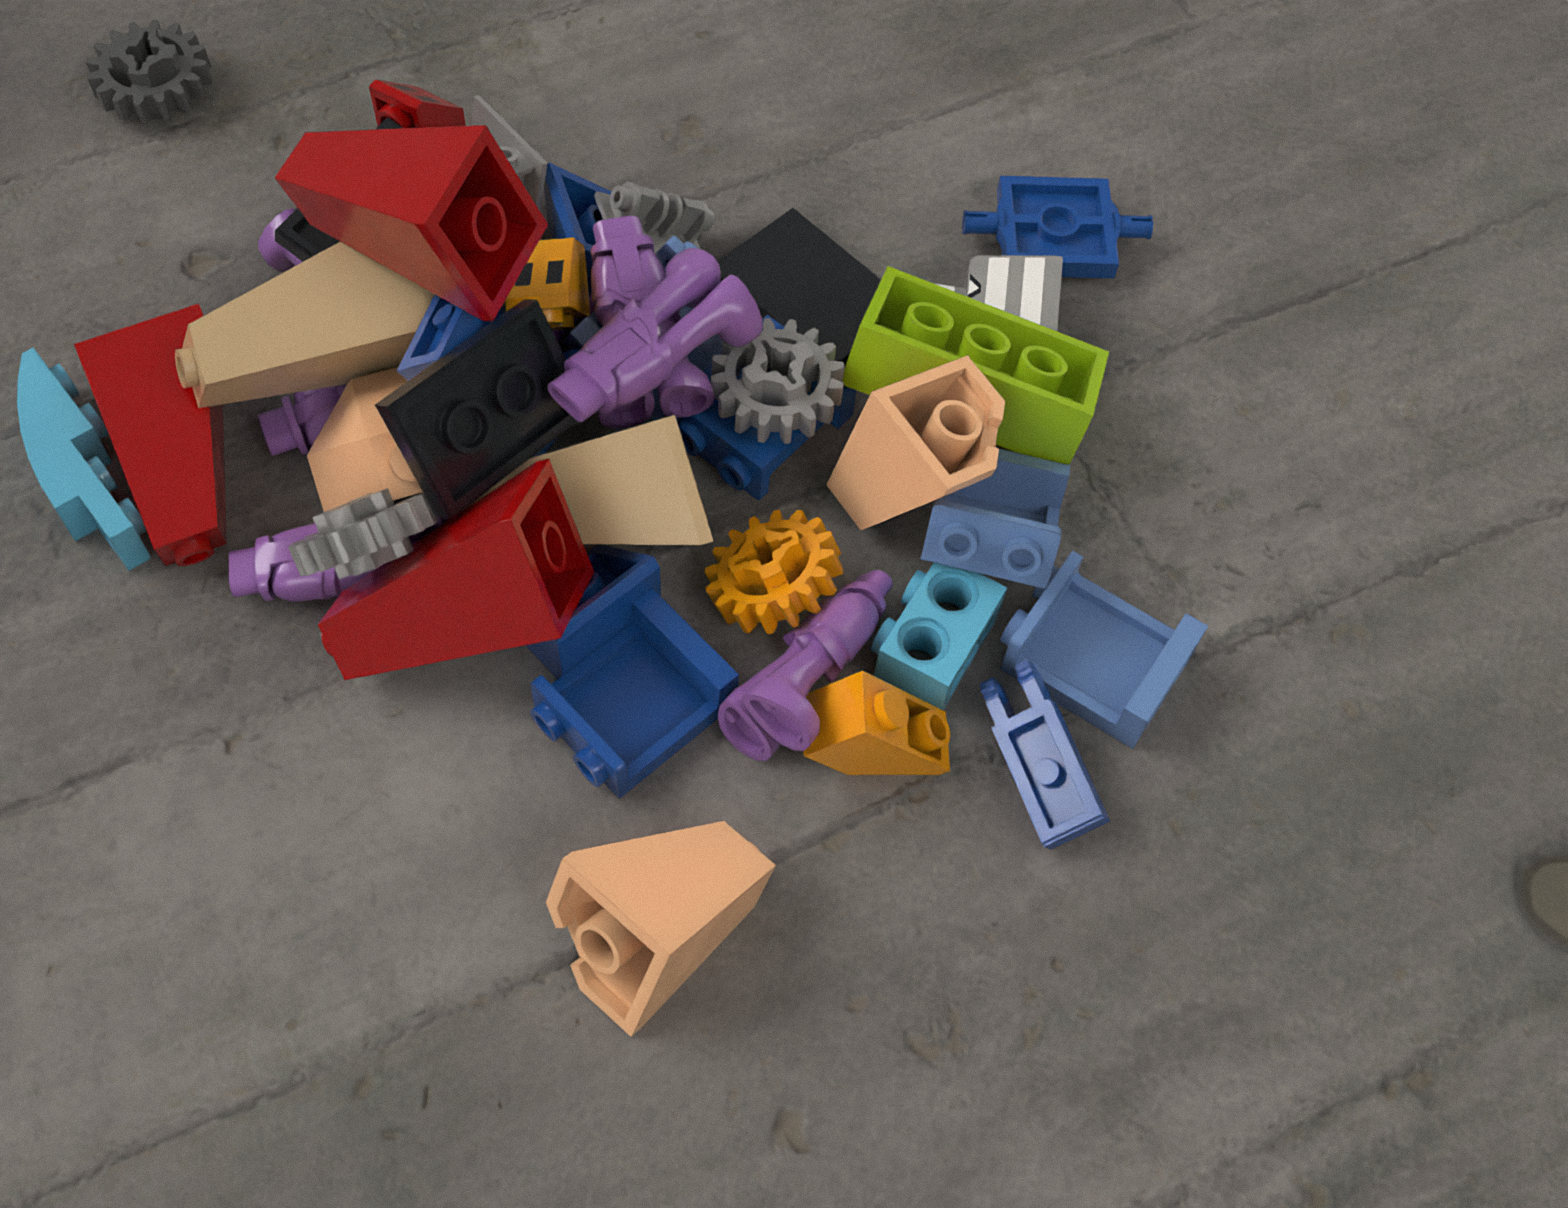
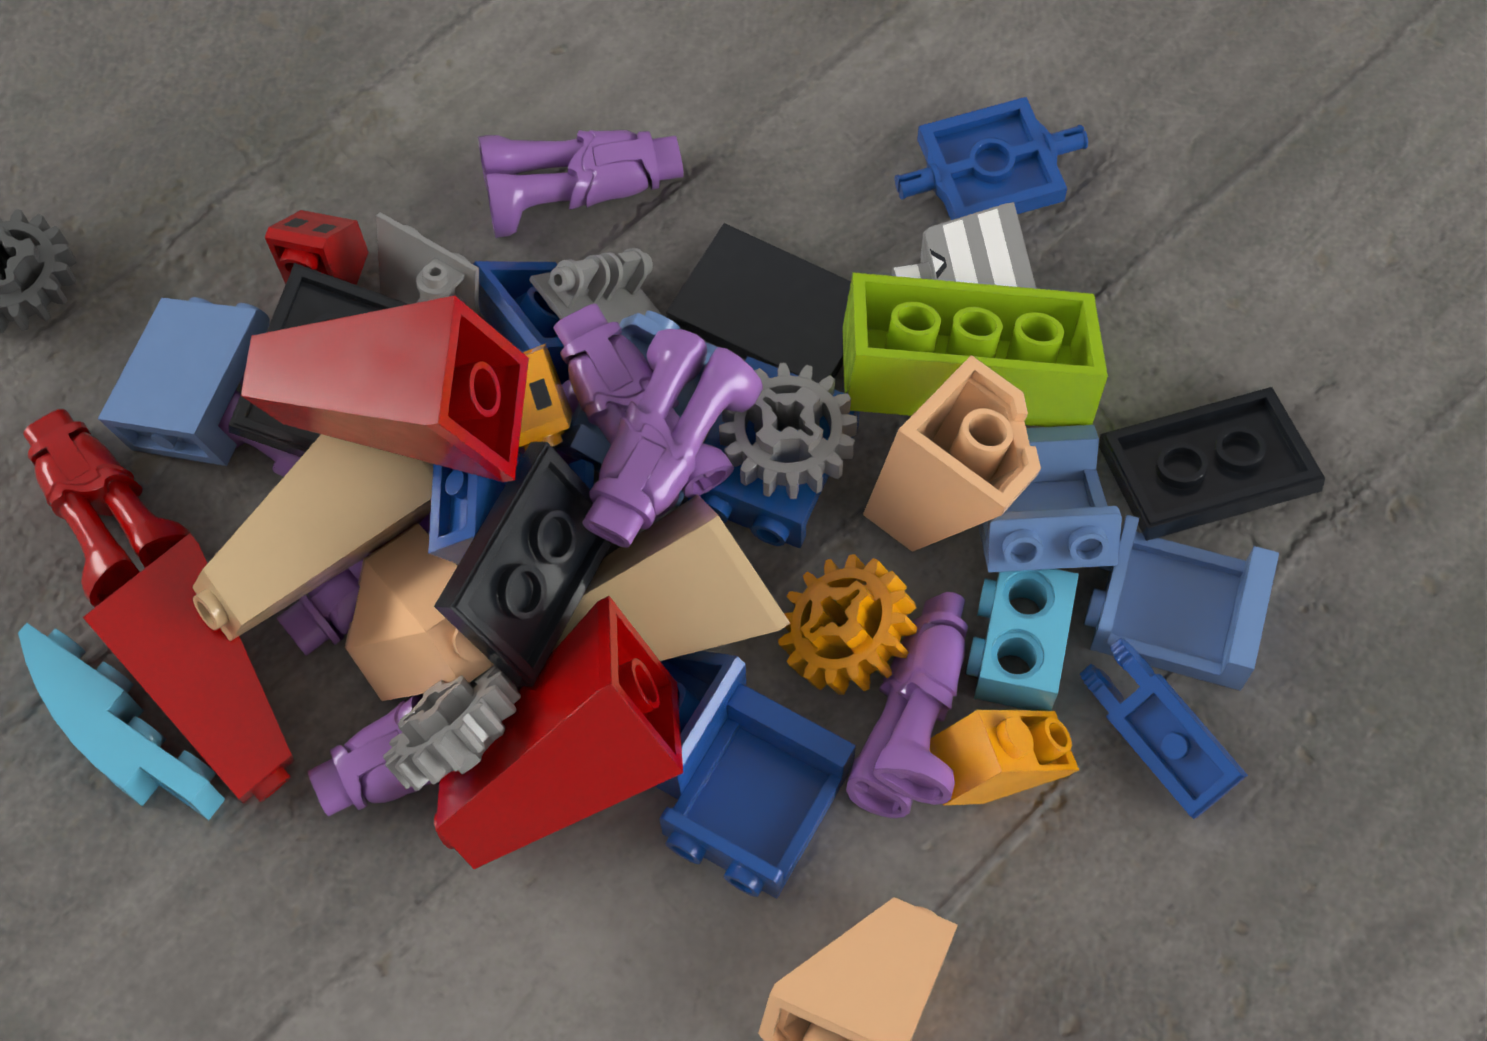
camera: 10 degrees left, 5 degrees up
(138, 253) = (86, 480): none -> red piece
(241, 202) = (183, 379): none -> medium blue panel
(693, 132) = (599, 170): none -> medium lavender piece
(1173, 536) = (1210, 463): none -> black tile

